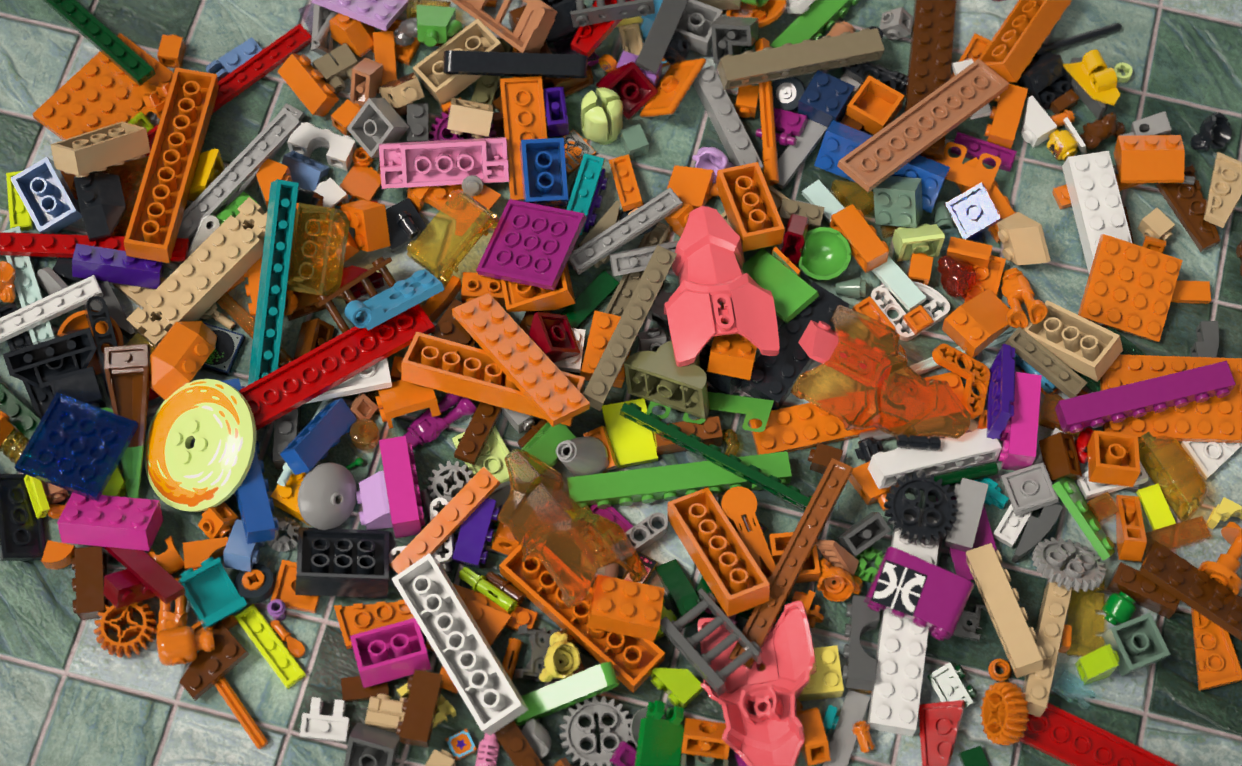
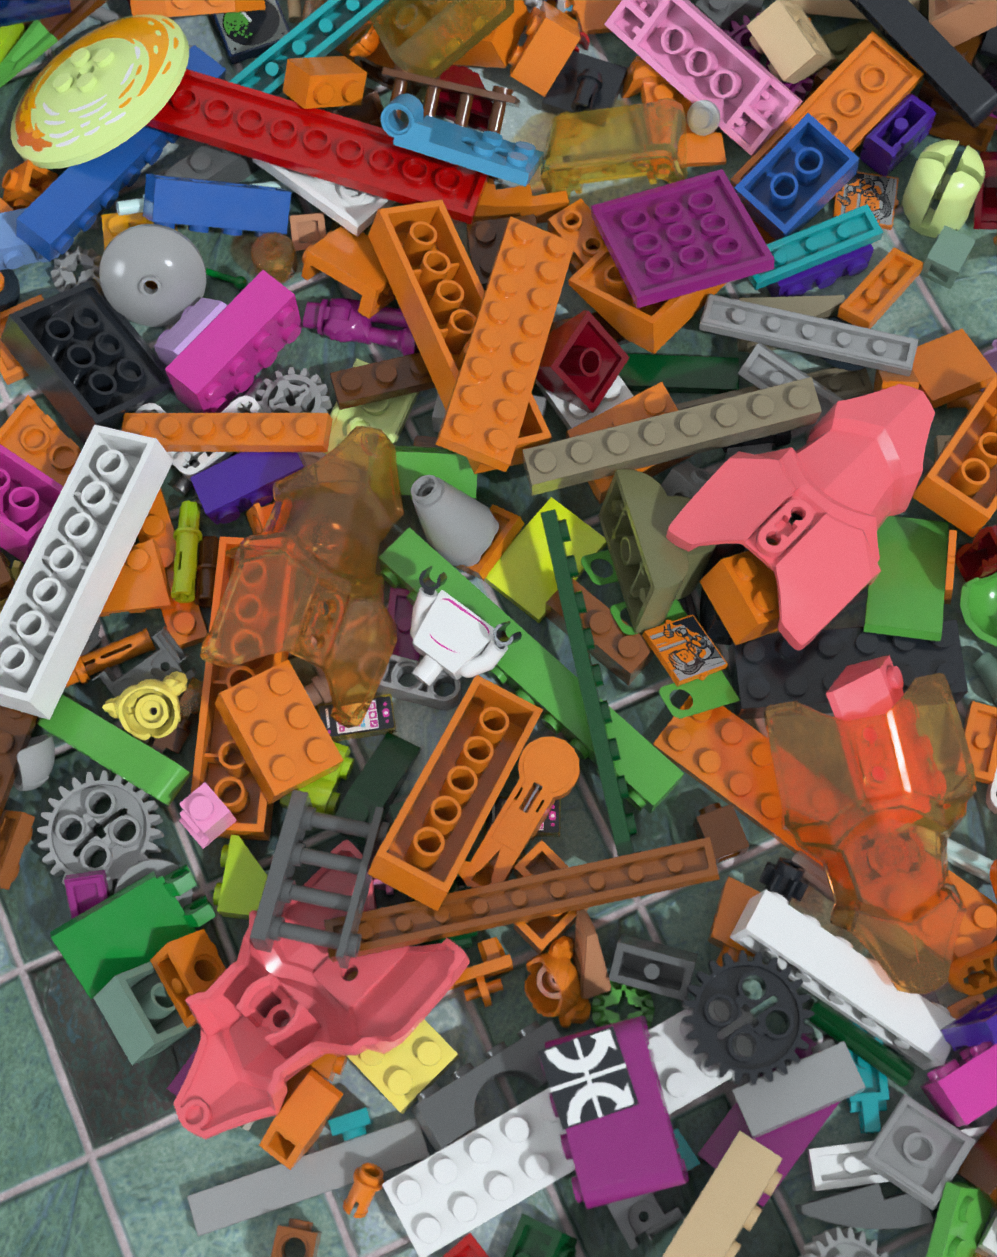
camera: 55 degrees right, 5 degrees up
(298, 336) = (324, 82): none -> orange brick
(638, 670) = (205, 815): none -> bright pink window
(642, 496) = (453, 635): none -> white torso
(731, 404) = (685, 650): none -> piece
(731, 440) = (642, 694): clear yellow arm -> none
(918, 442) = (841, 939): black axle -> none

